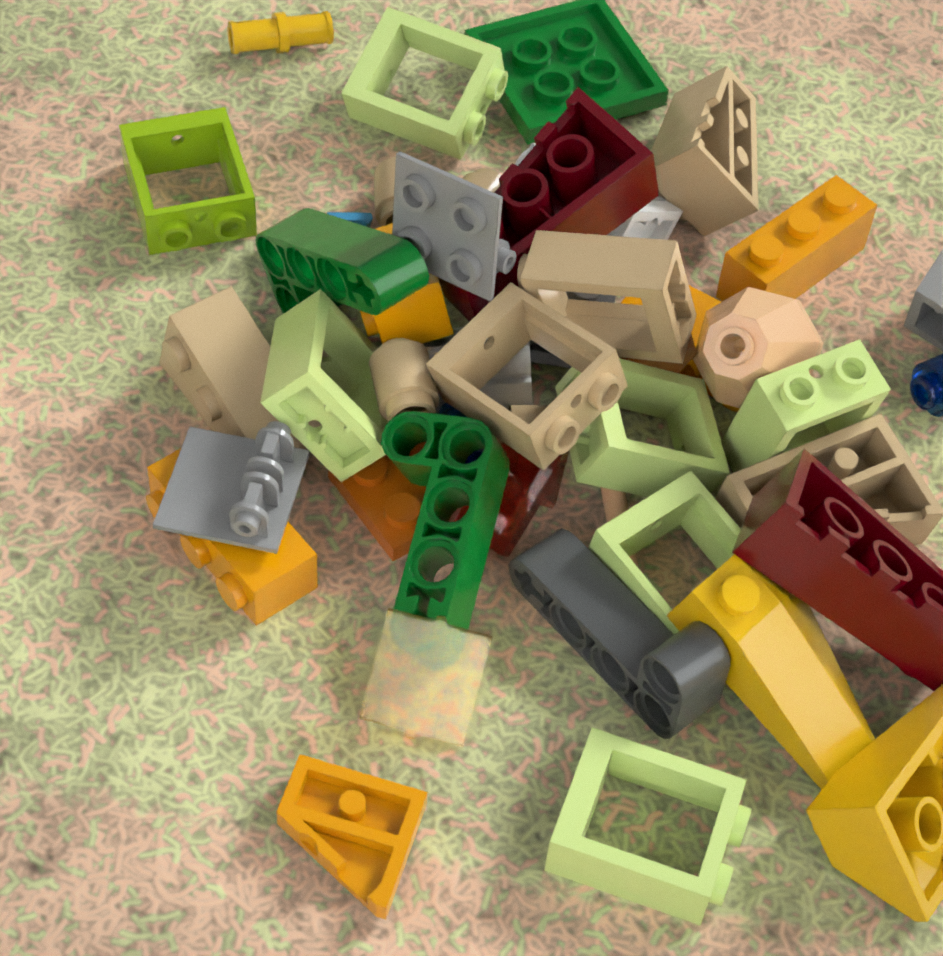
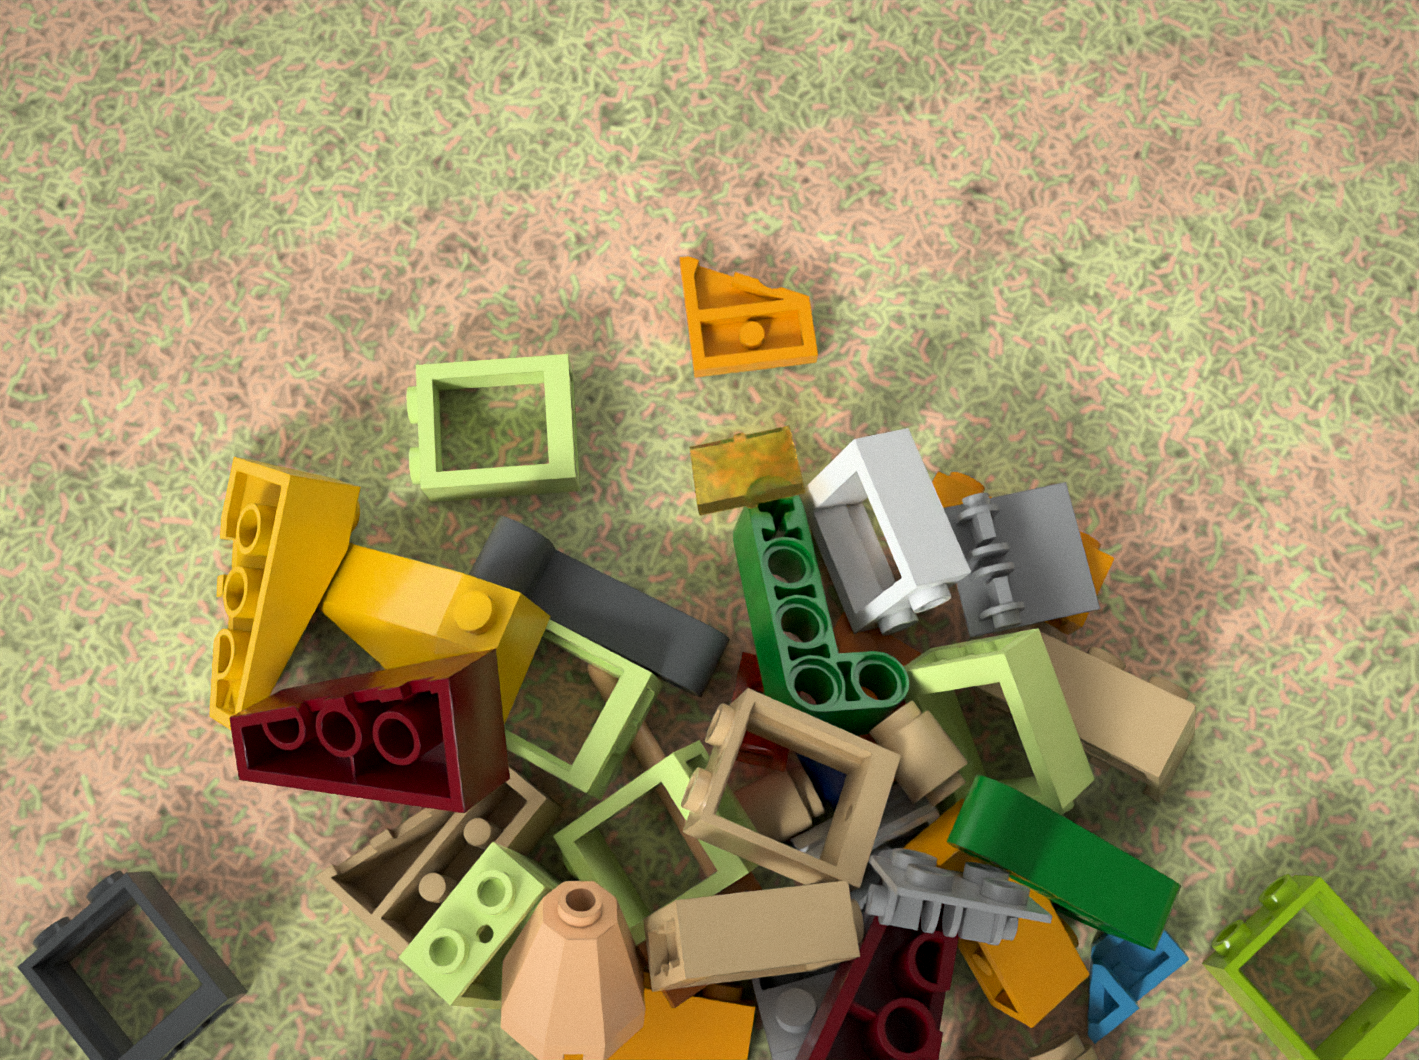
camera: 160 degrees right, 25 degrees up
(335, 556) = (911, 518): none -> white window

